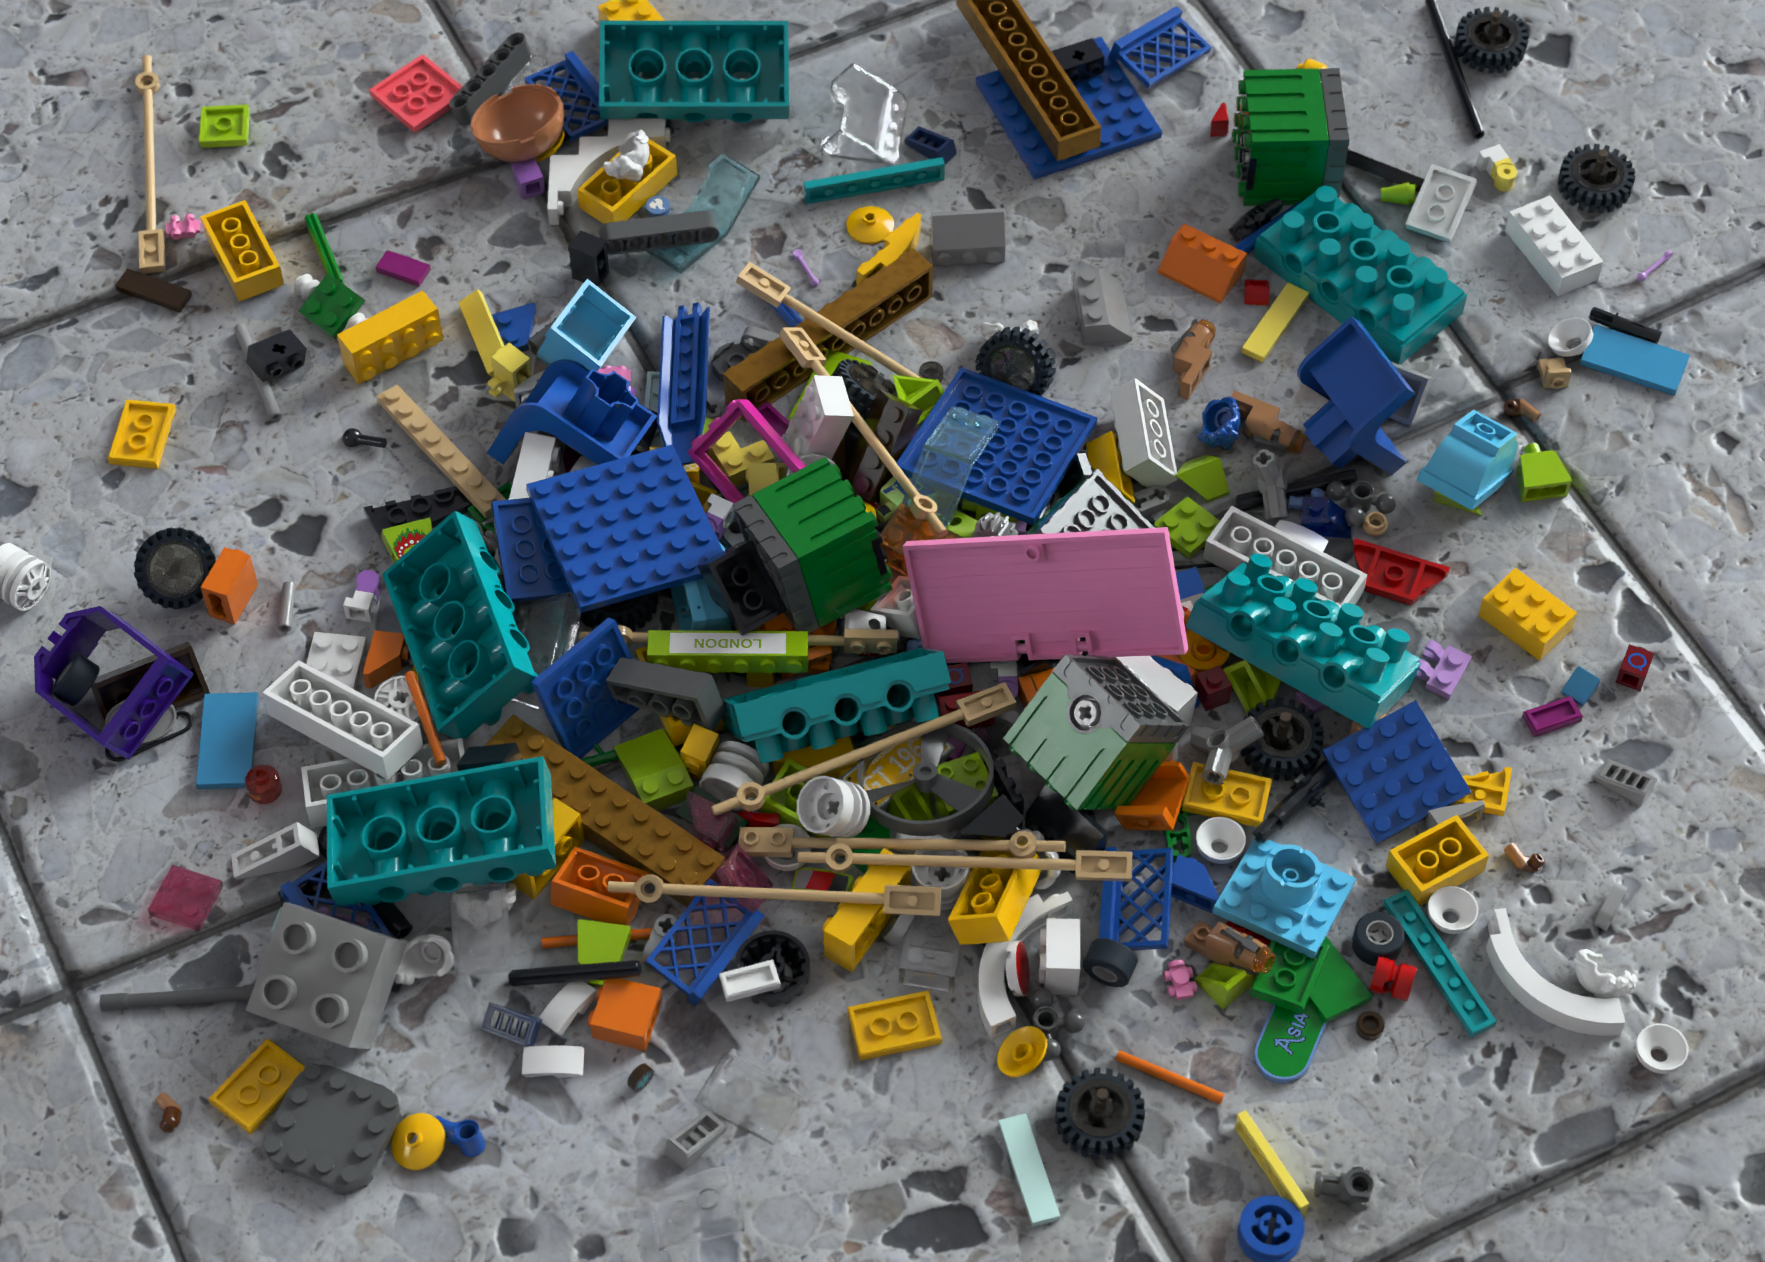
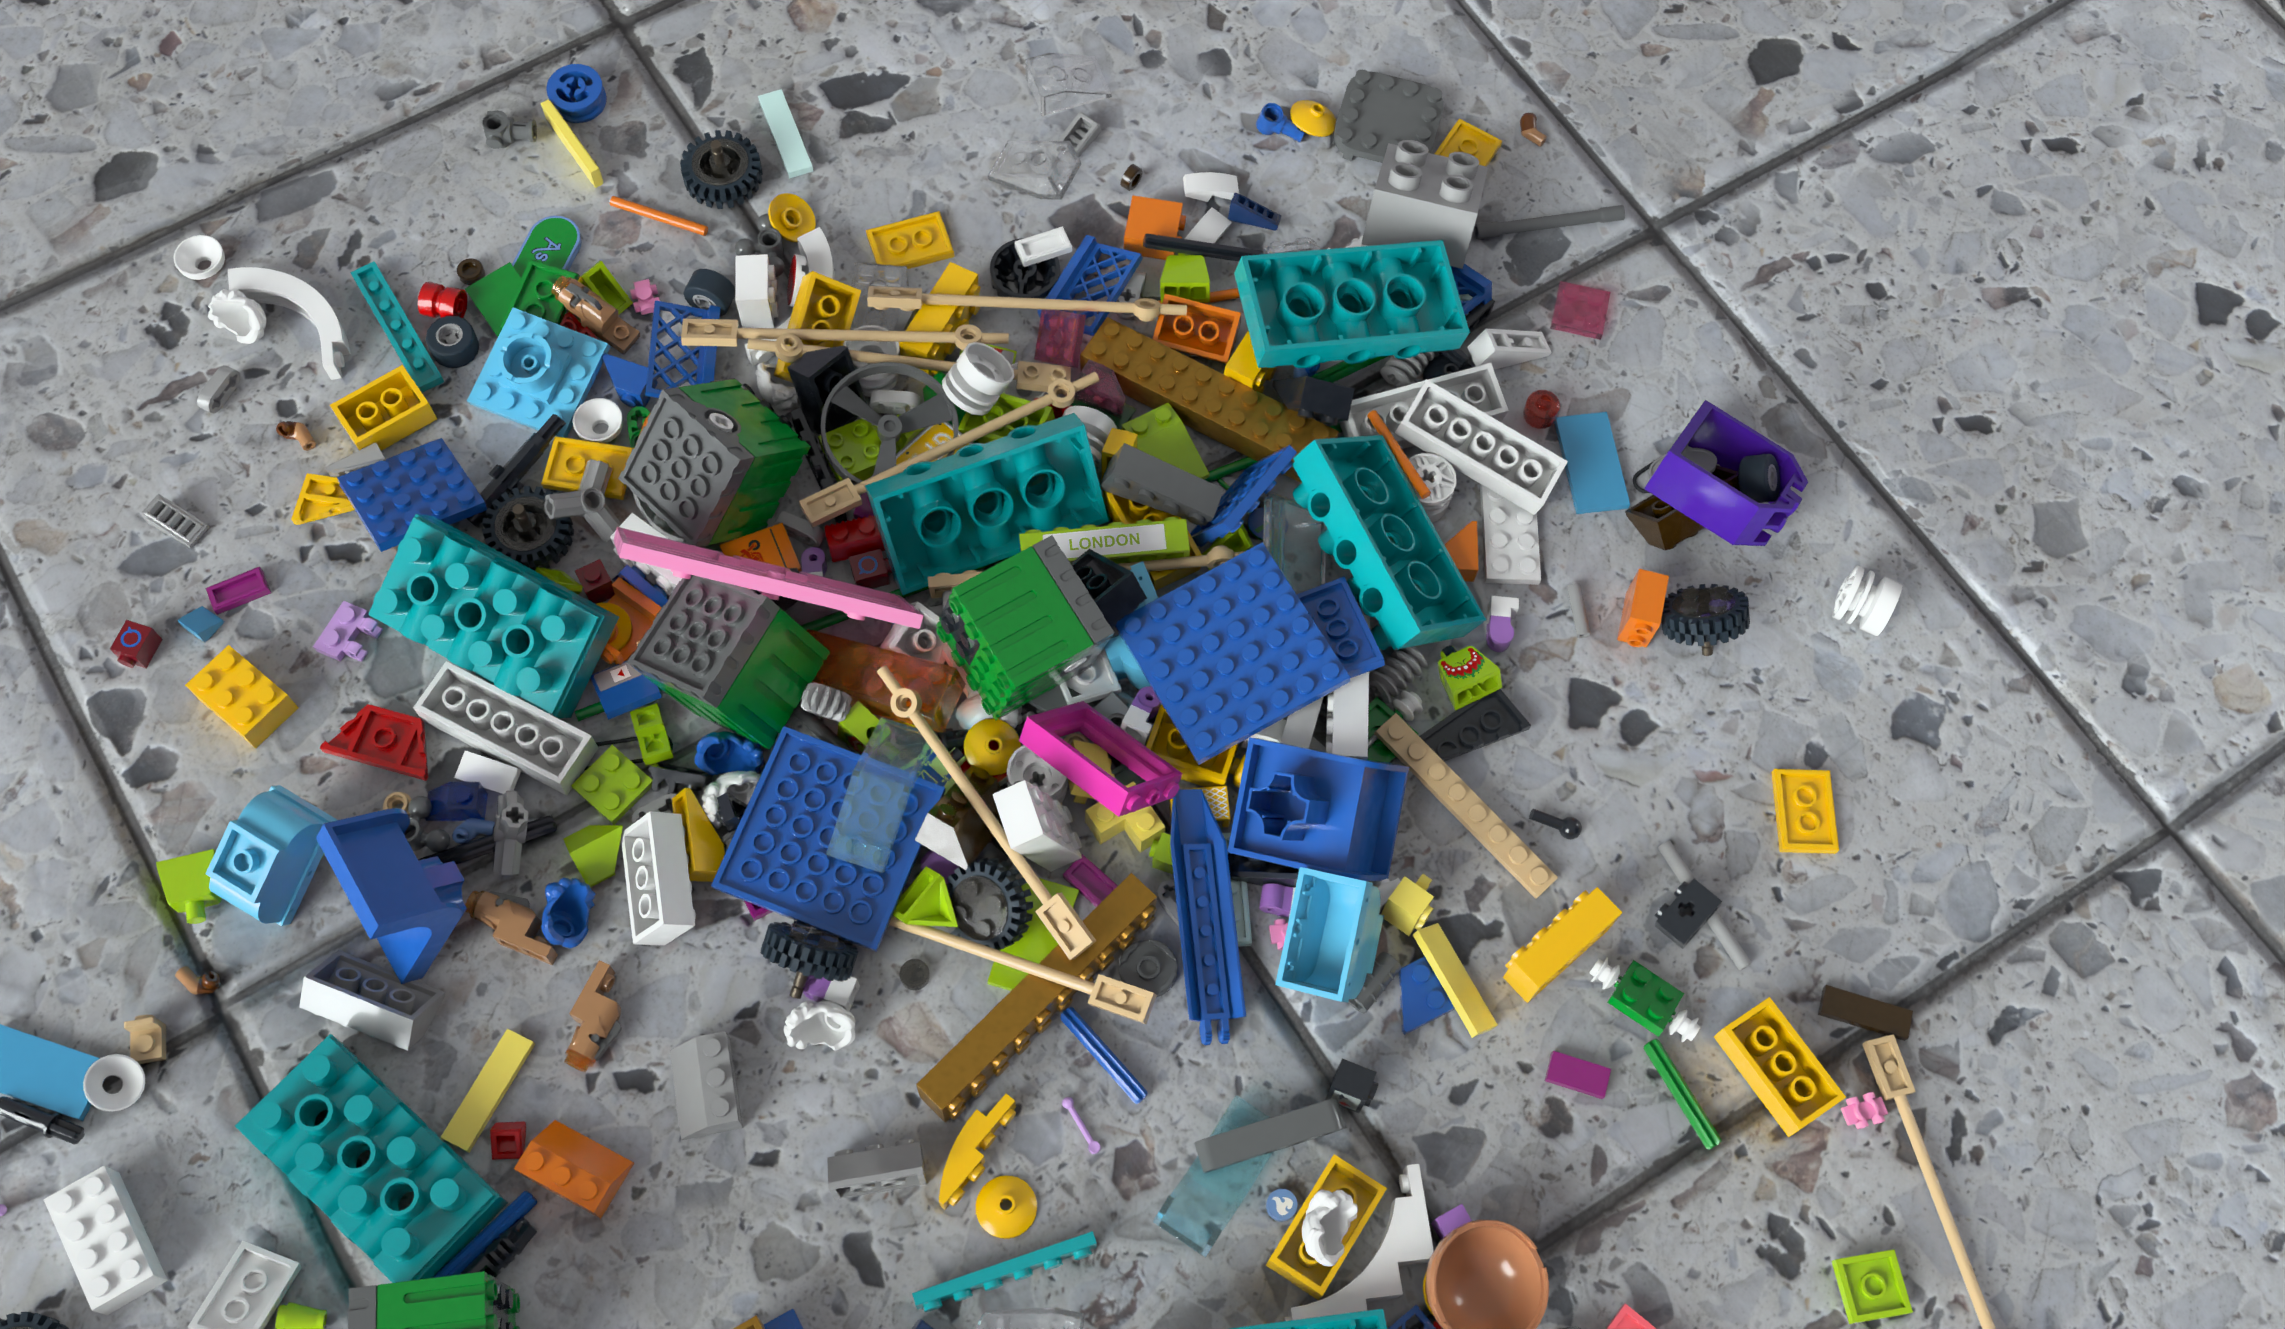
camera: 170 degrees right, 10 degrees up
(1453, 900) = (370, 362): white piece -> none

